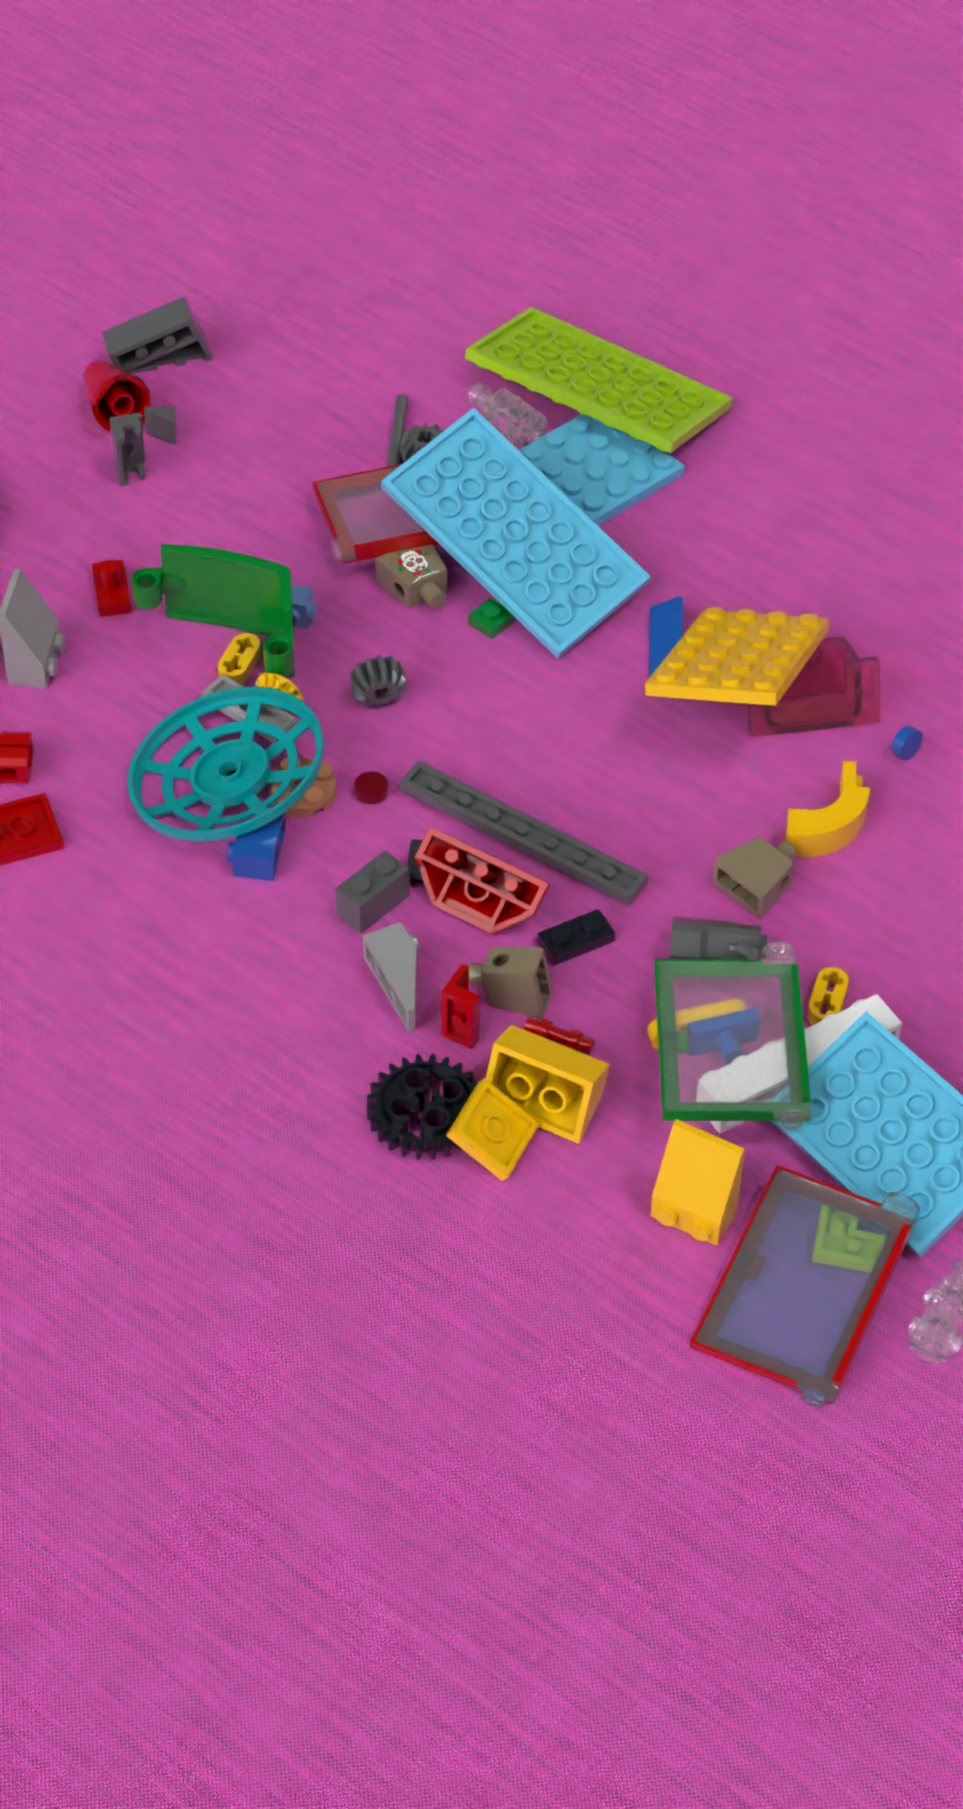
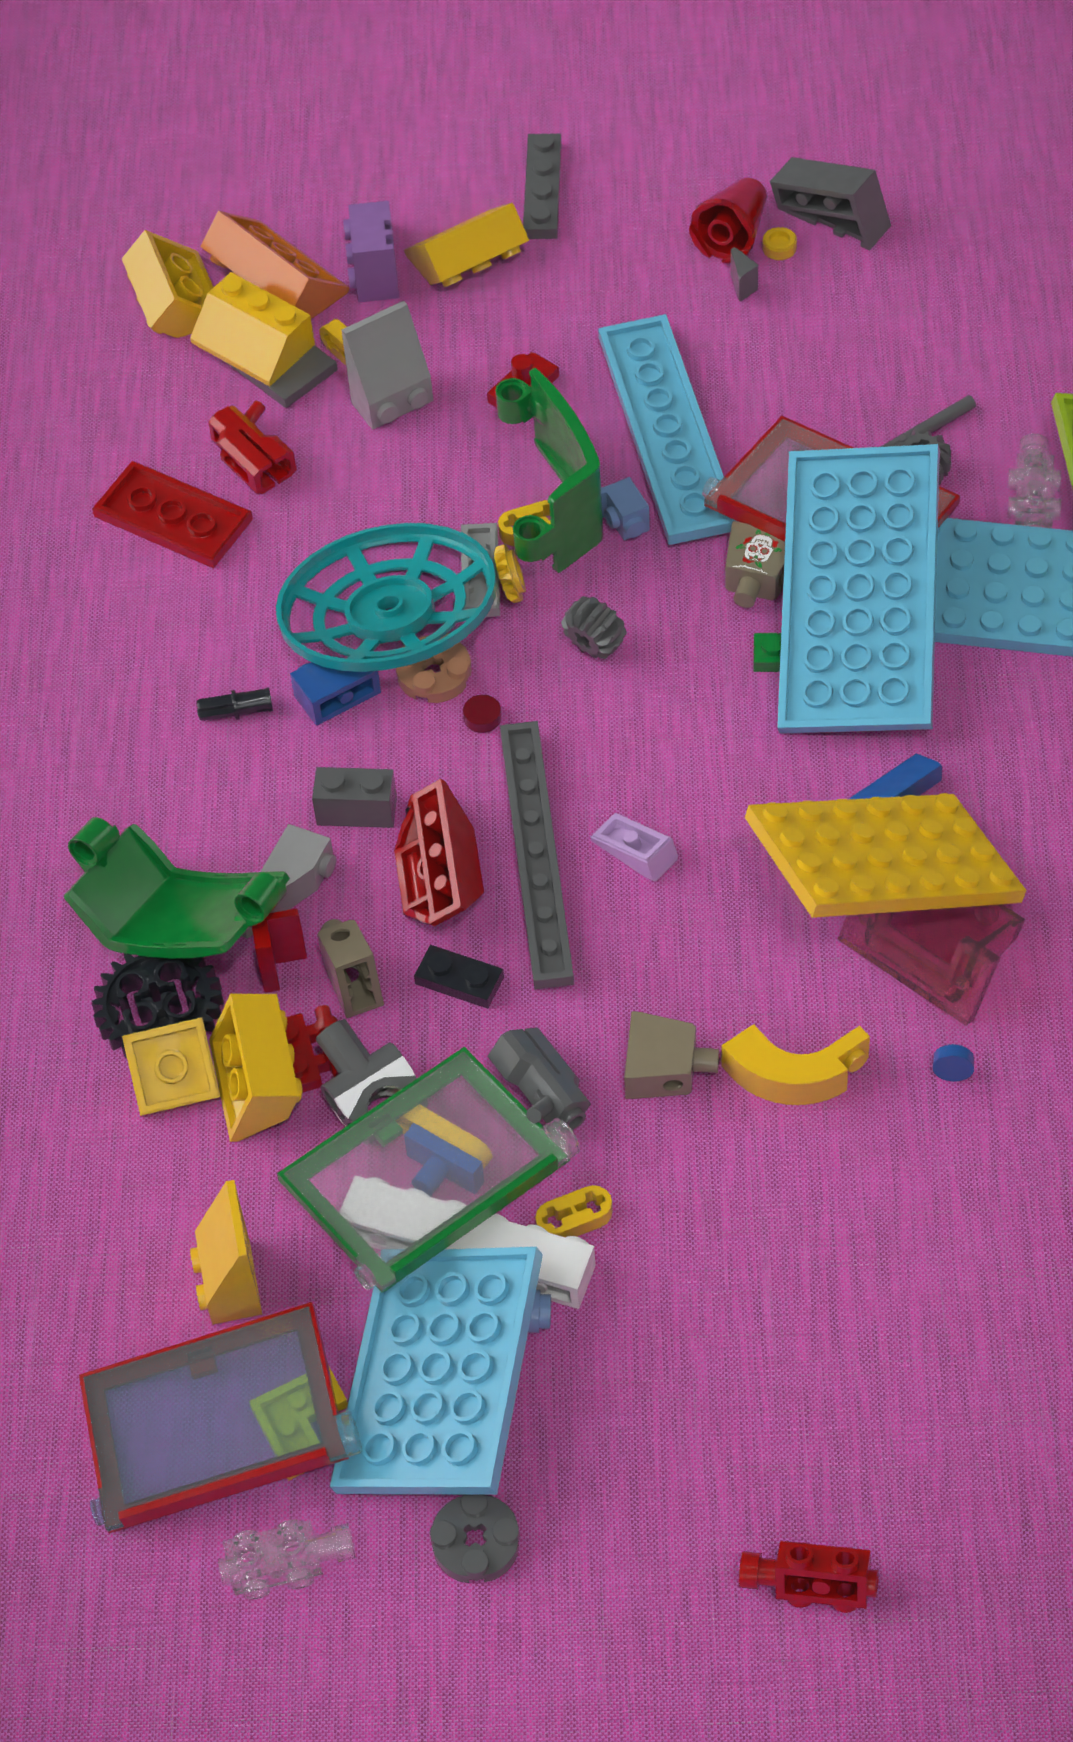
camera: 55 degrees right, 5 degrees up
(128, 446) = (674, 272): dark grey hinge -> none
(159, 392) = (779, 243): none -> yellow tile
(194, 521) = (665, 425): none -> medium azure plate
(210, 907) = (234, 704): none -> black axle
(378, 1033) = (153, 909): none -> green panel
(569, 782) = (636, 846): none -> lavender slope
(618, 1031) = (361, 1074): none -> dark grey connector

